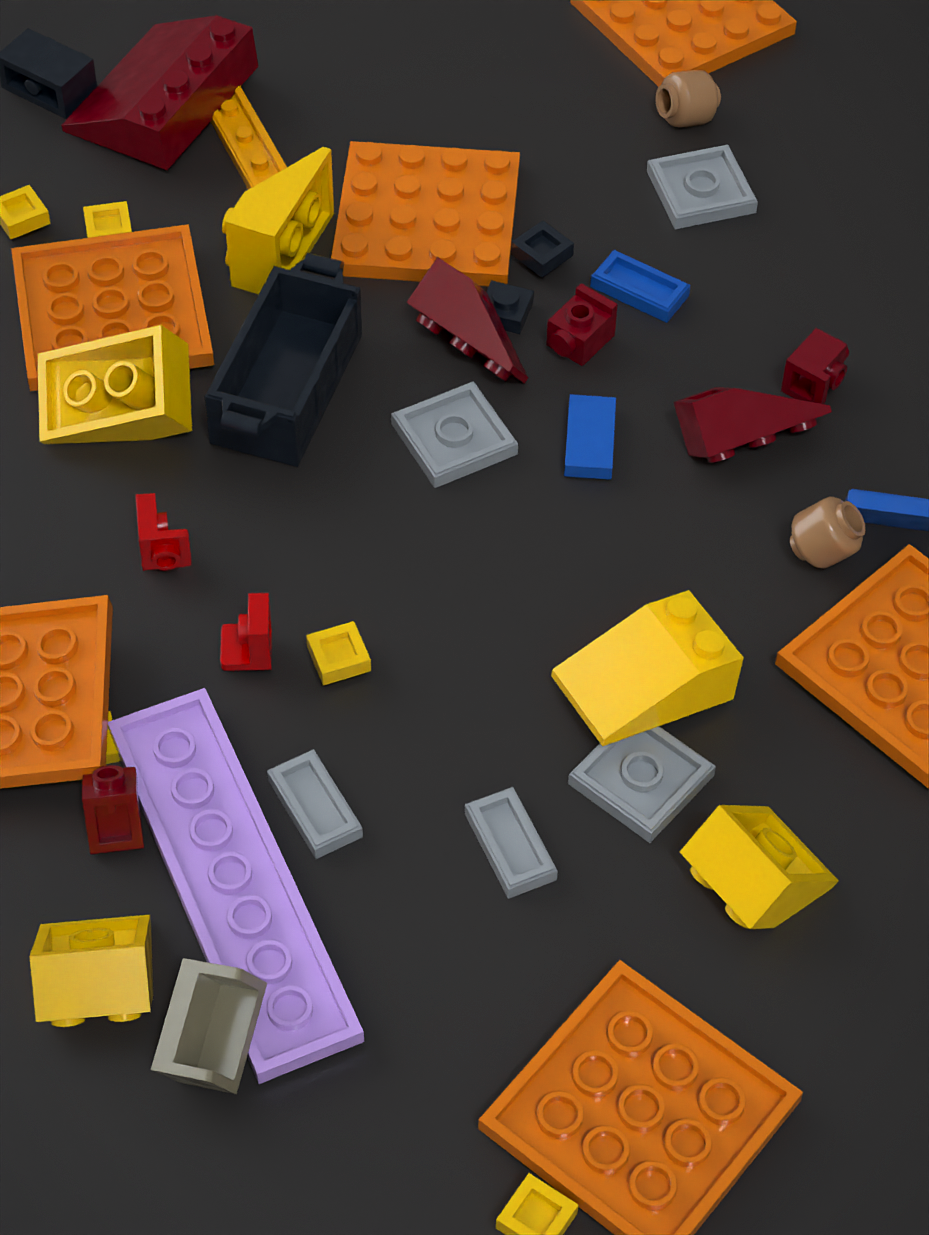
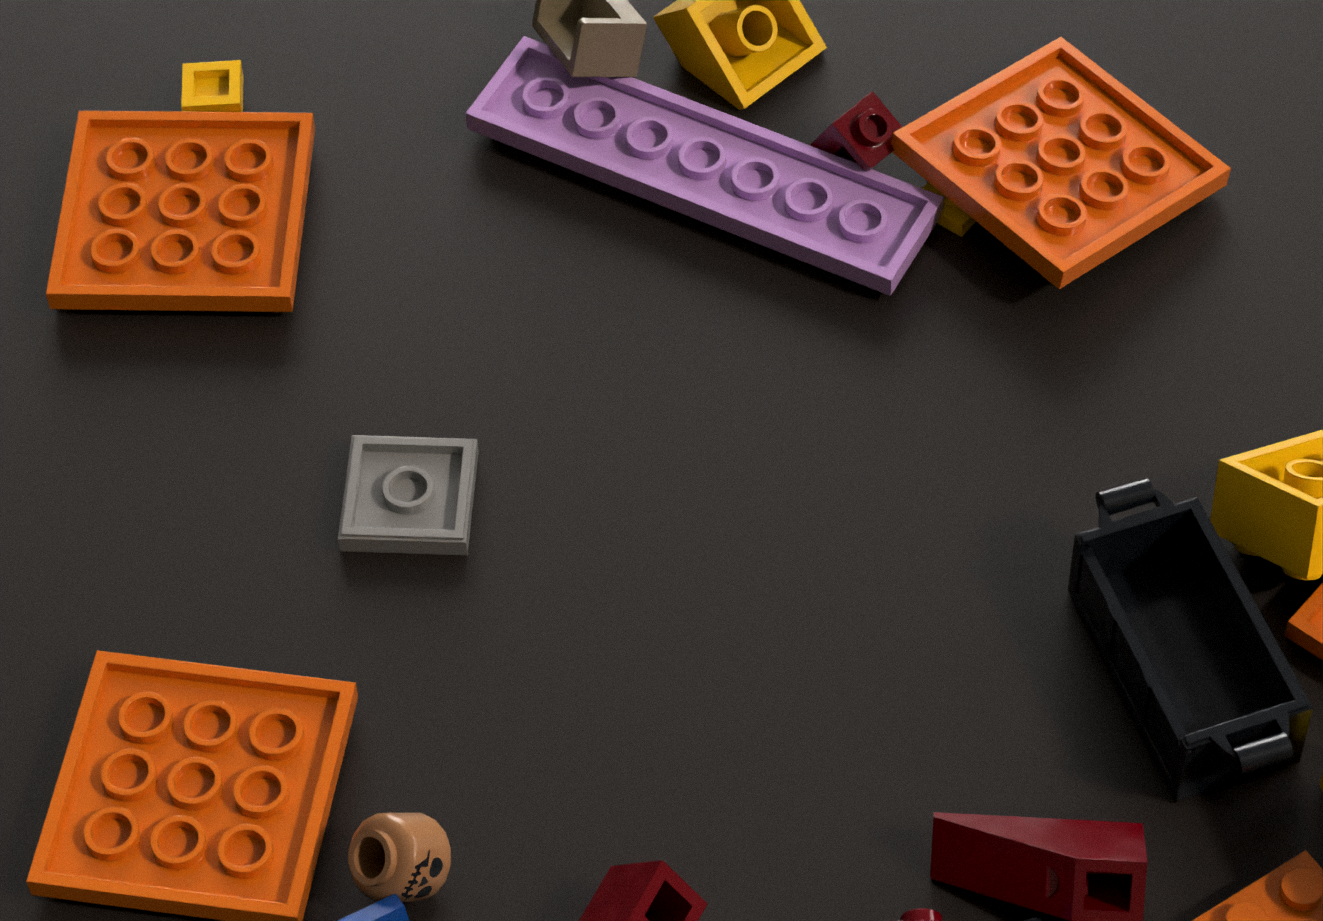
camera: 145 degrees right, 0 degrees up
(158, 545) = (1111, 387): red bracket -> none
(250, 641) = (897, 350): red bracket -> none
(315, 804) = (695, 275): light grey tile -> none
(338, 653) = (807, 404): yellow plate -> none
(454, 434) = (938, 737): light grey tile -> none
(510, 842) = (483, 356): light grey tile -> none
(590, 437) = (784, 838): blue tile -> none
(651, 670) = (470, 571): yellow slope -> none
(756, 865) = (219, 464): yellow slope -> none

